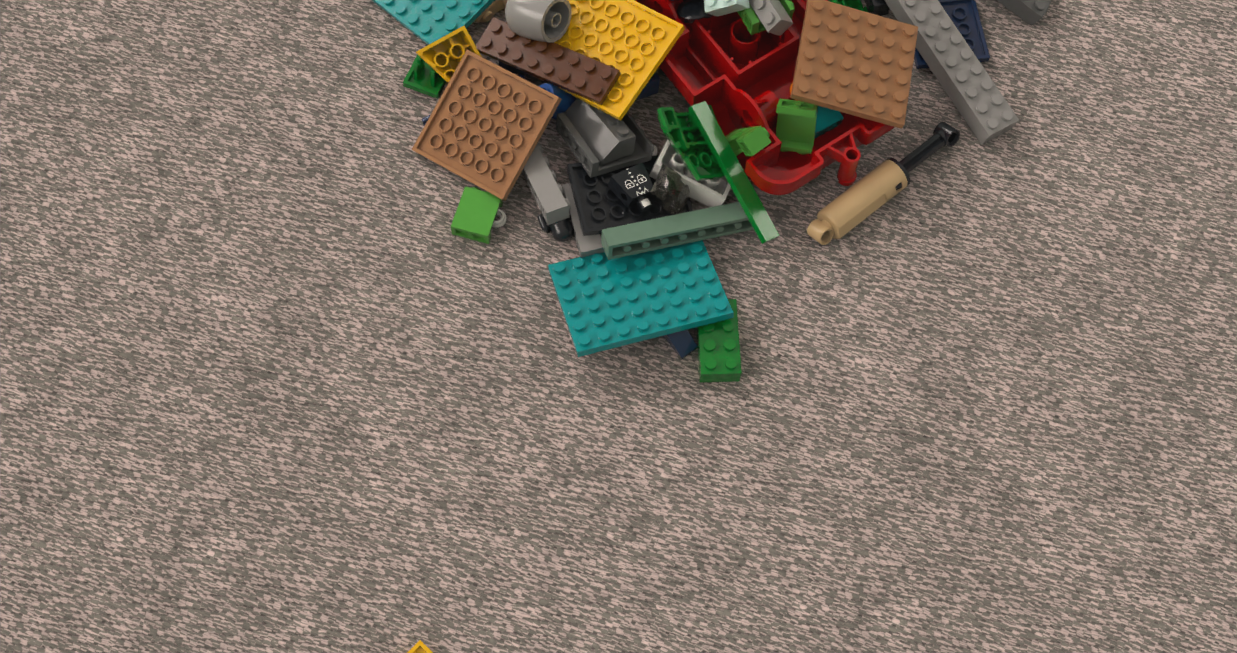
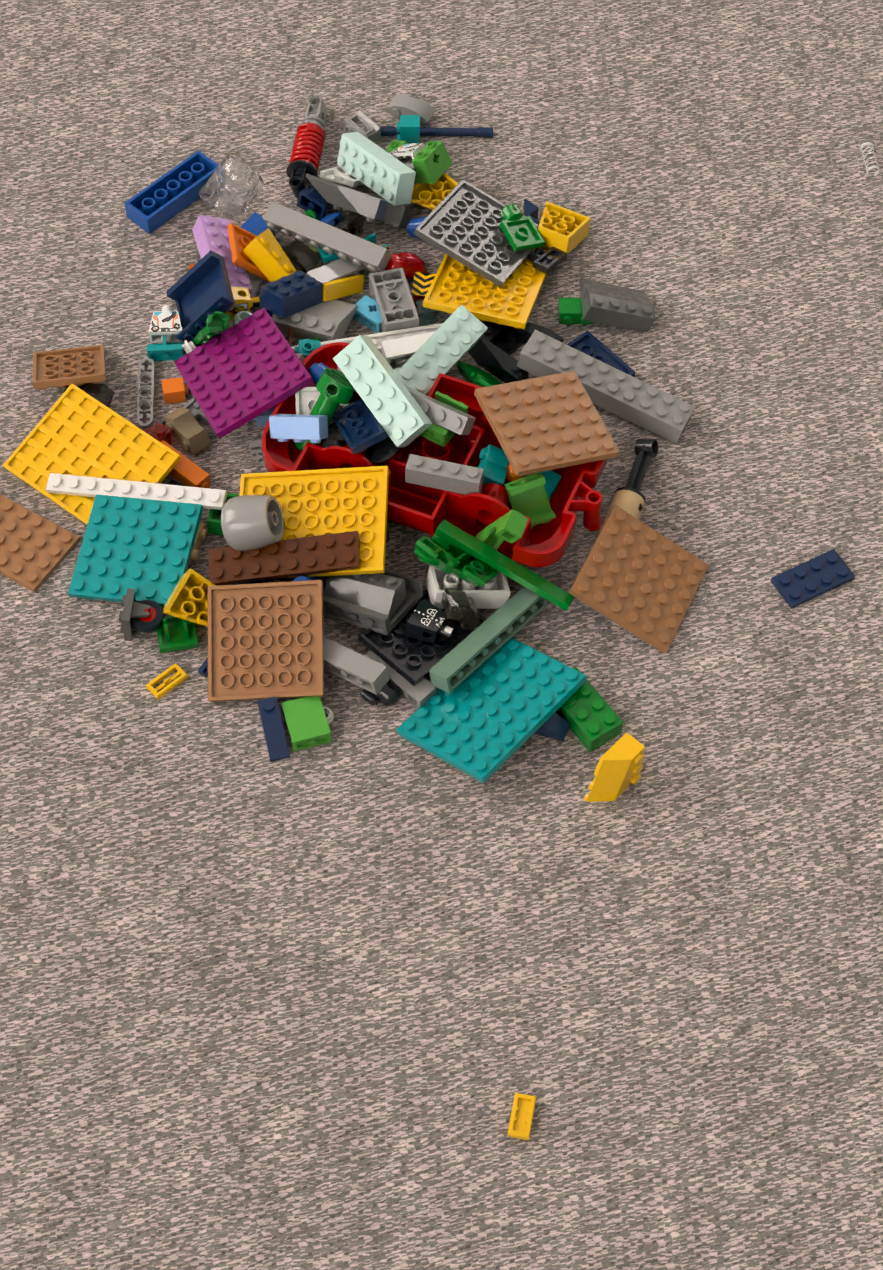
camera: 30 degrees left, 10 degrees down
(388, 118) = (157, 692): none -> yellow tile
(402, 42) = (143, 616): none -> plate
(446, 204) = (273, 728): none -> dark blue slope
(702, 413) = (617, 770): none -> yellow wedge
(729, 61) = (443, 475): none -> light grey brick
(781, 76) = (494, 464): none -> teal brick
(850, 251) = (639, 579): none -> medium nougat plate
(1016, 340) = (812, 578): none -> dark blue plate

